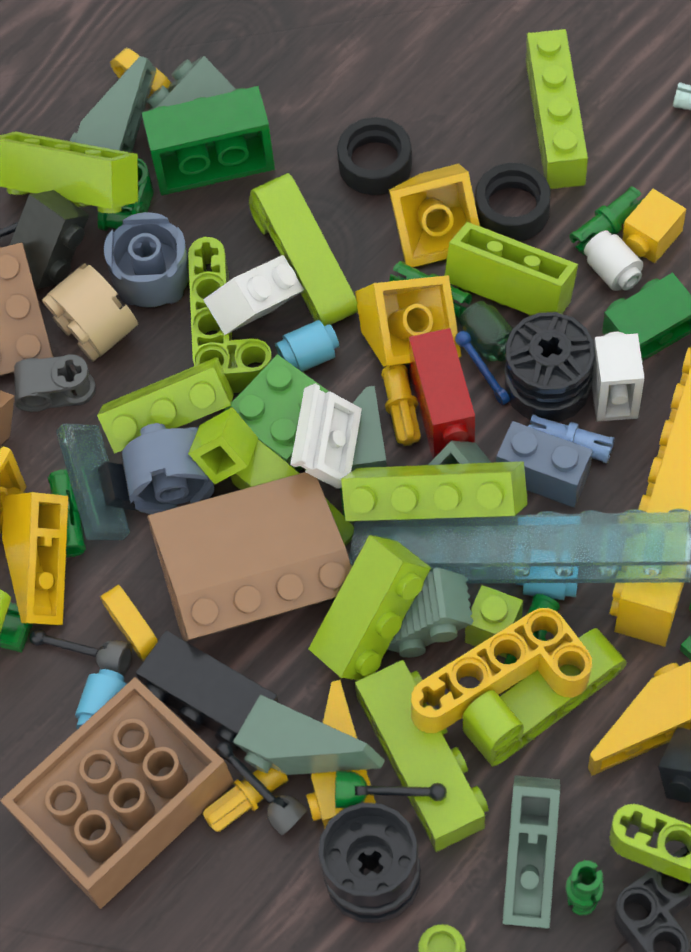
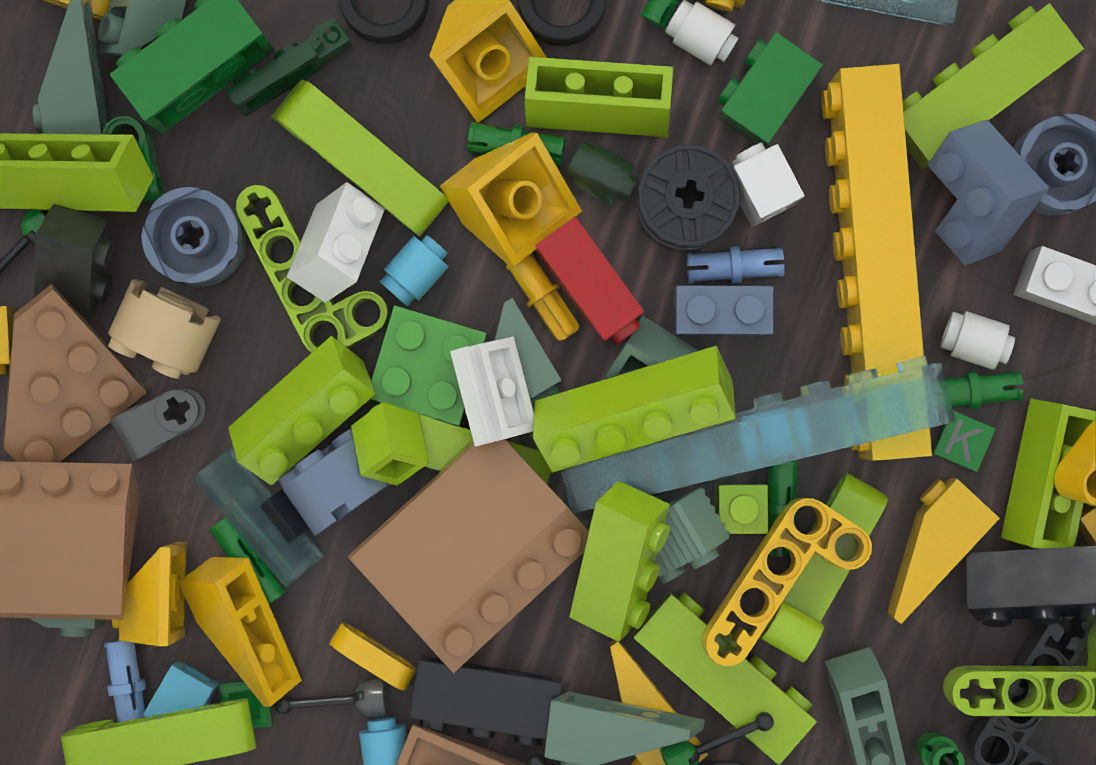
camera: 25 degrees left, 25 degrees up
(304, 170) = (290, 65): none -> dark green hinge
(463, 339) = (580, 196): blue hinge -> none

